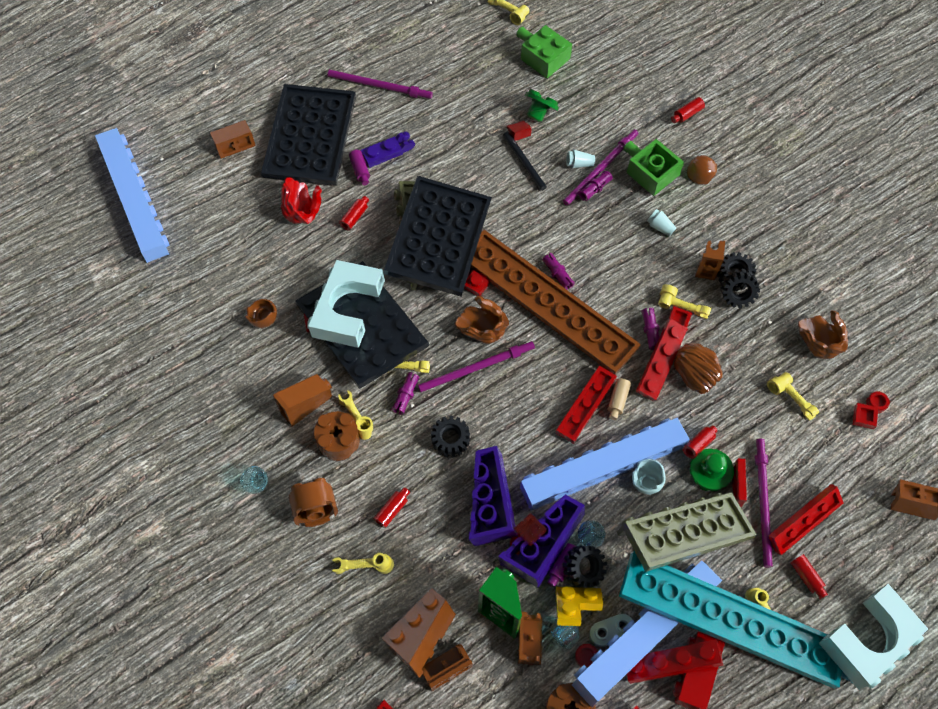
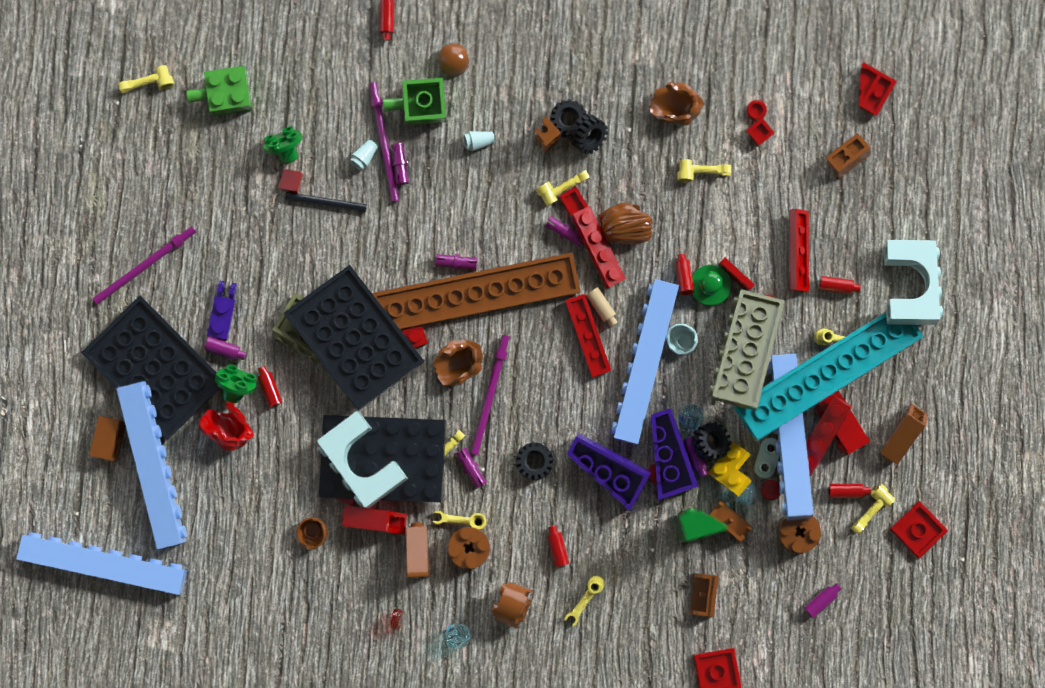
camera: 55 degrees left, 20 degrees up
(231, 173) = (151, 465): none -> light blue brick
(235, 423) = (396, 619): none -> clear red tile
(306, 349) = (374, 520): none -> red slope
(338, 186) = (235, 383): none -> green plate
(419, 631) = (668, 596): dark orange wedge -> none
(530, 529) = (658, 462): clear red tile -> none
(761, 462) = (732, 241): magenta bar -> none

